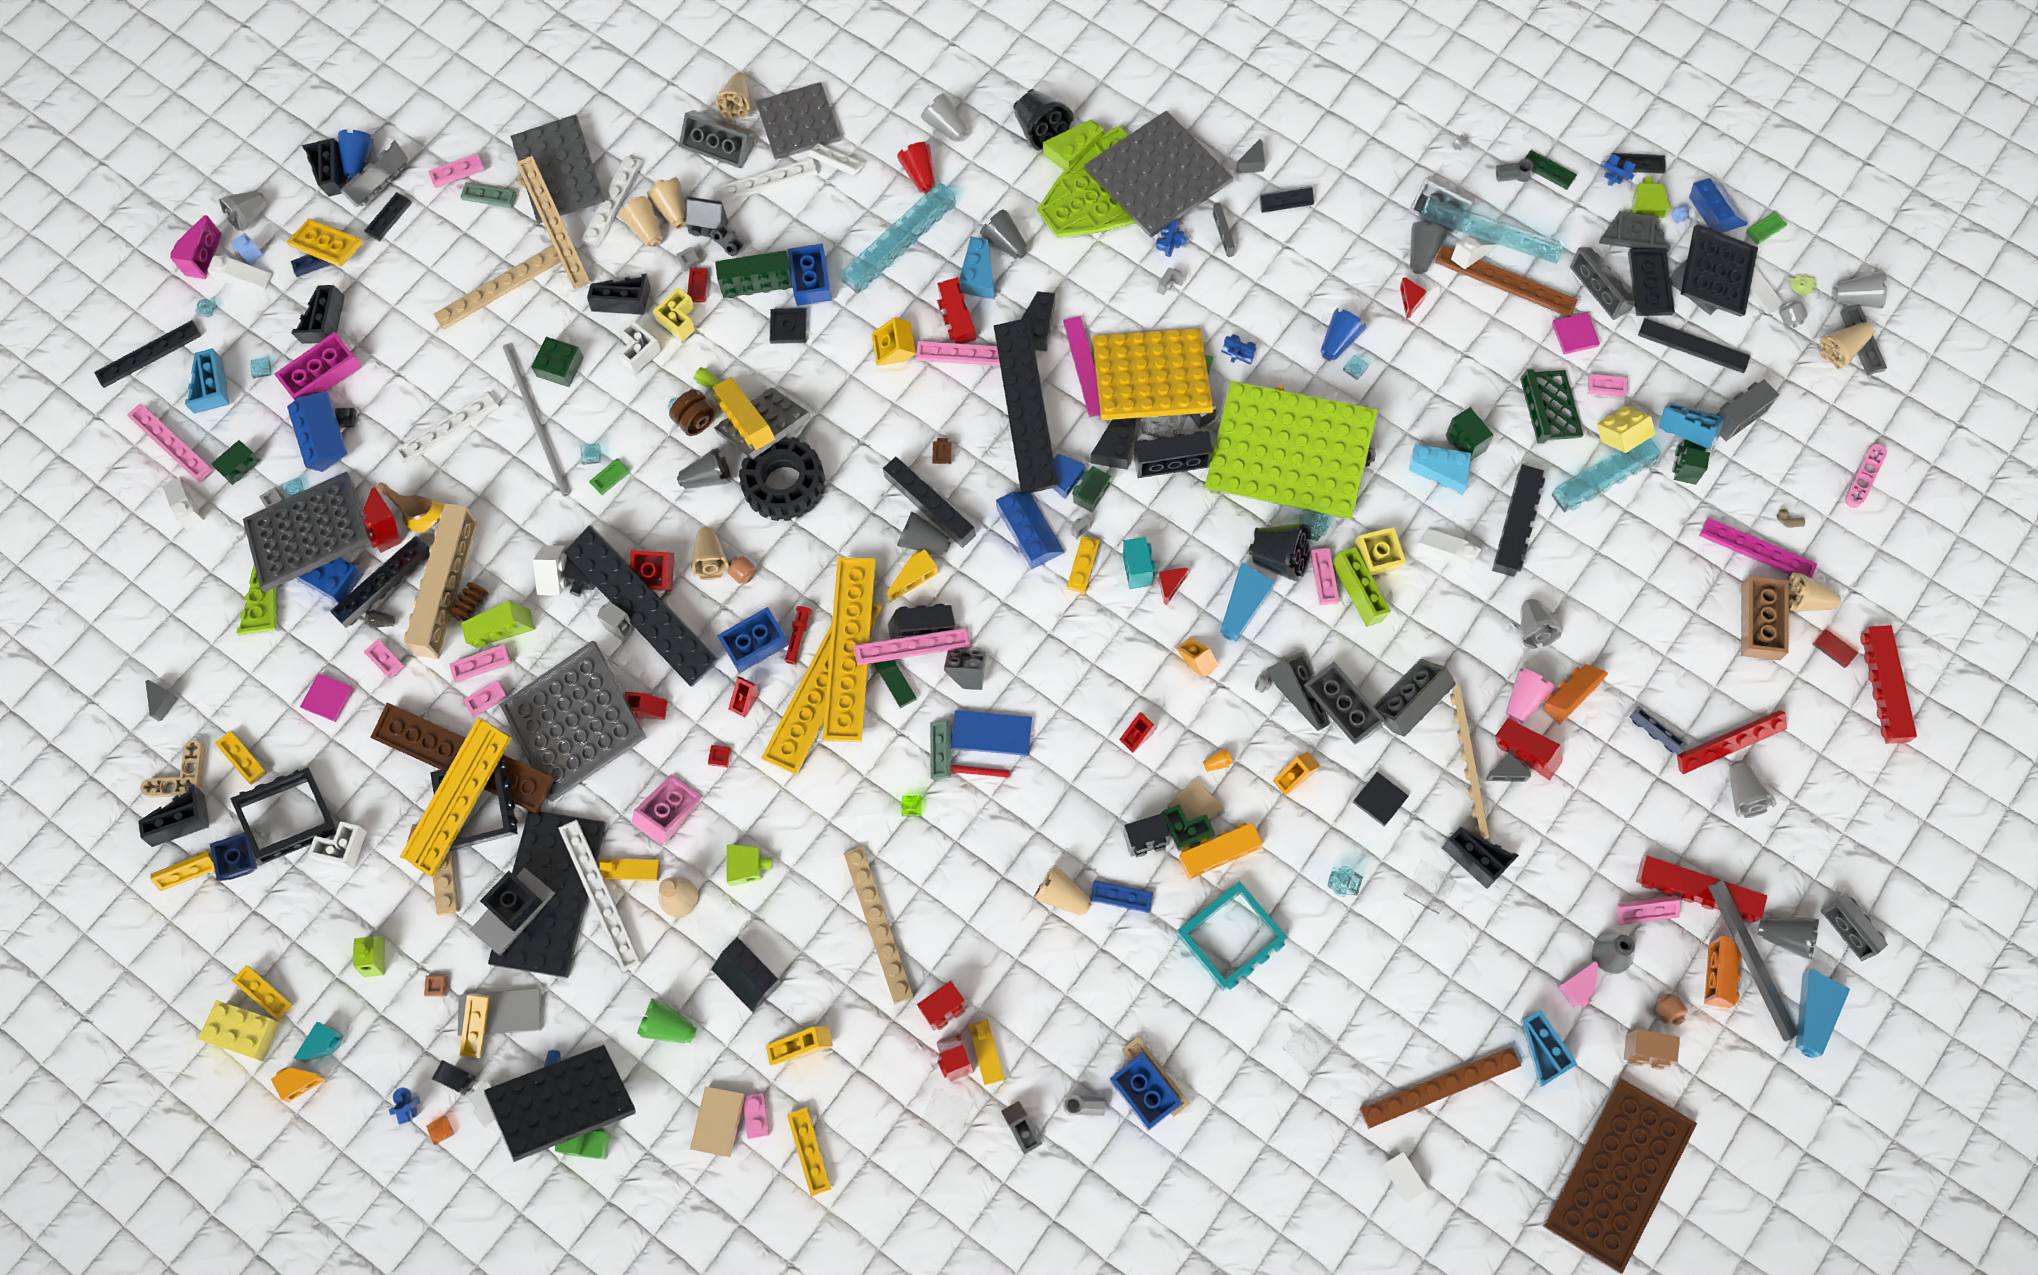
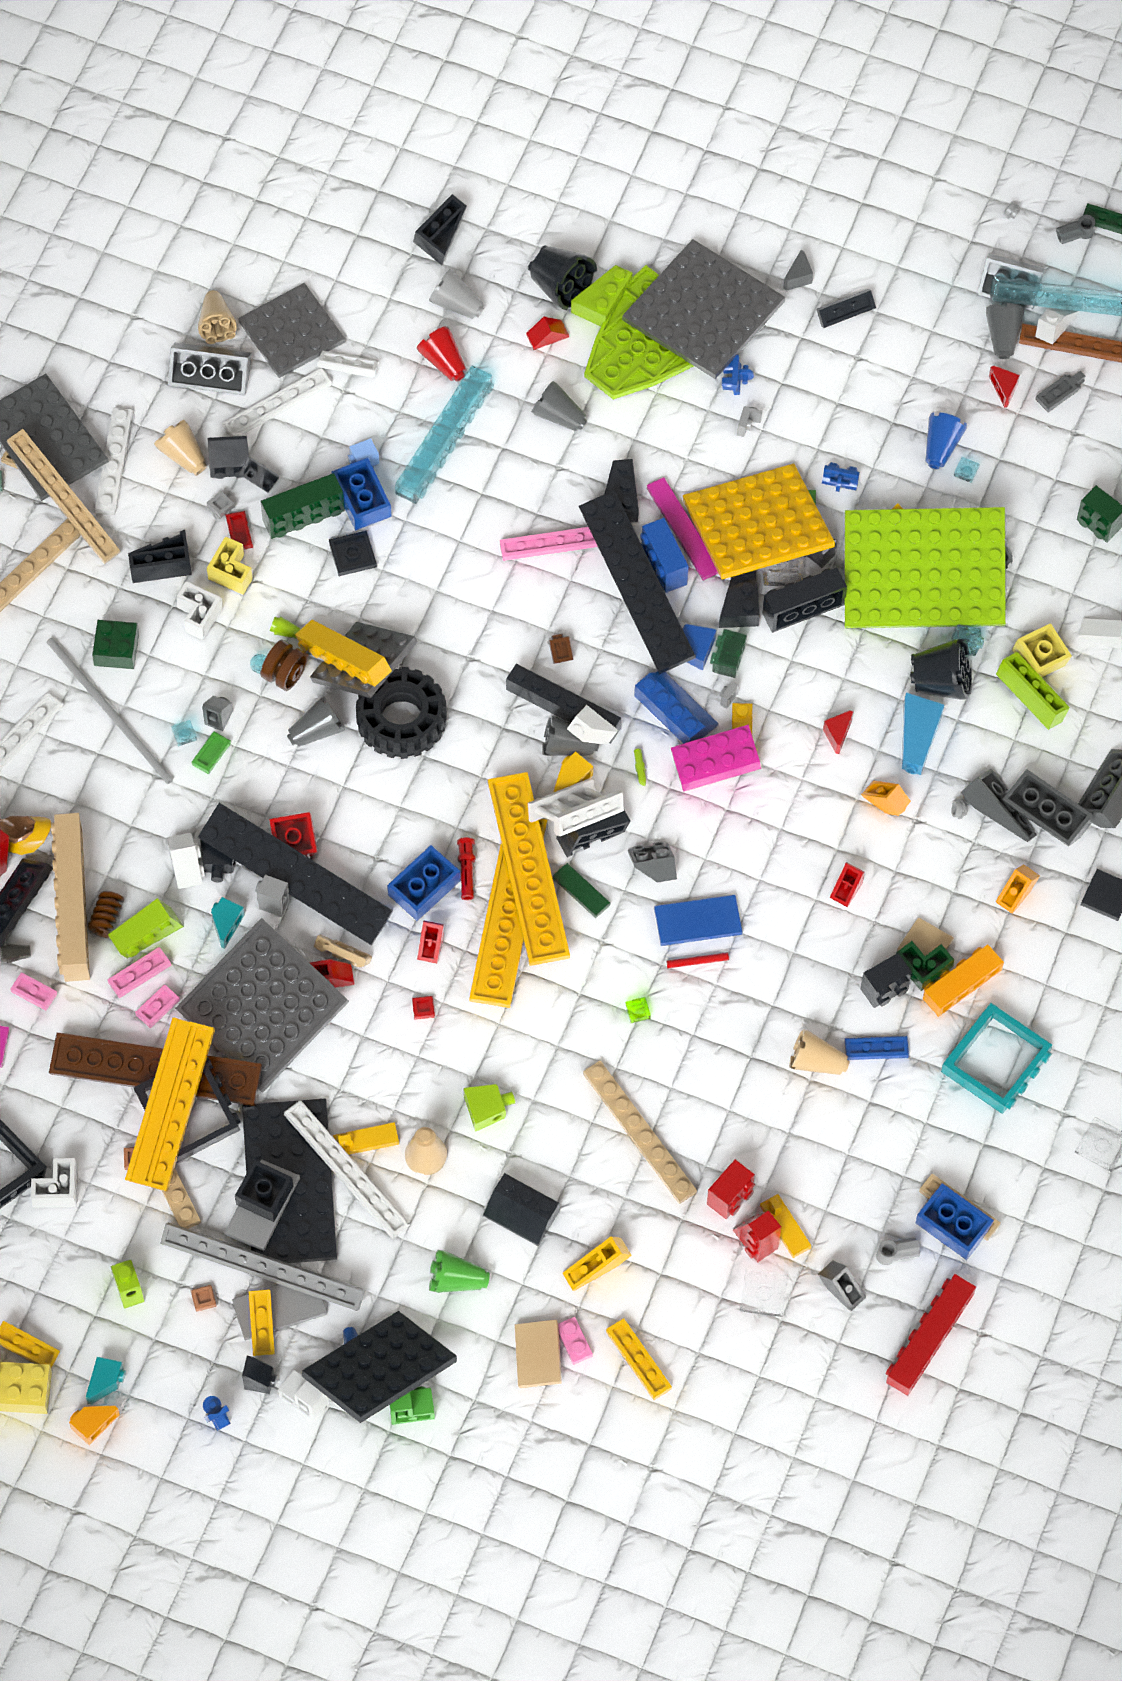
camera: 20 degrees left, 5 degrees down
(440, 1130) = (256, 1431): clear orange tile -> none
(494, 971) = (262, 1266): none -> light grey plate
(570, 633) = (226, 919): none -> teal slope
(623, 441) = (217, 712): none -> dark grey slope
(642, 220) = (159, 475): tan cone -> none
(664, 686) = (341, 950): none -> tan hinge
(665, 809) = (386, 1071): bright pink slope -> none
(708, 555) = (348, 808): tan cone -> none
(741, 569) = (386, 815): nougat head -> none
(826, 237) = (364, 450): none -> light blue brick
(893, 342) = (473, 546): yellow slope -> none
(908, 611) = (579, 816): none -> white fence
(911, 646) = (591, 851): bright pink tile -> none
(940, 749) = (651, 948): sand green tile -> none
(943, 530) = (591, 727): none -> white slope
(950, 58) = (440, 229): none -> black wedge
(955, 312) = (530, 501): red wedge -> none
(976, 270) = (541, 452): dark azure wedge -> none
(982, 575) = (640, 766): none -> lime piece
(1016, 166) = (546, 332): none -> red slope
(1049, 584) = (715, 758): none -> dark pink brick
(1057, 386) = (664, 555): none -> blue brick
(1092, 1200) = (930, 1335): none -> red brick
(1138, 562) = (800, 716): teal brick -> none
(1218, 761) = (936, 894): light orange cone -> none
(1223, 229) = (789, 354): dark grey tile -> none
(1324, 576) = (992, 689): bright pink plate -> none
(1344, 881) = (1094, 979): clear light blue brick -> none
(1442, 466) = (1081, 551): medium azure wedge -> none
(1461, 313) = (1060, 391): none -> dark grey hinge

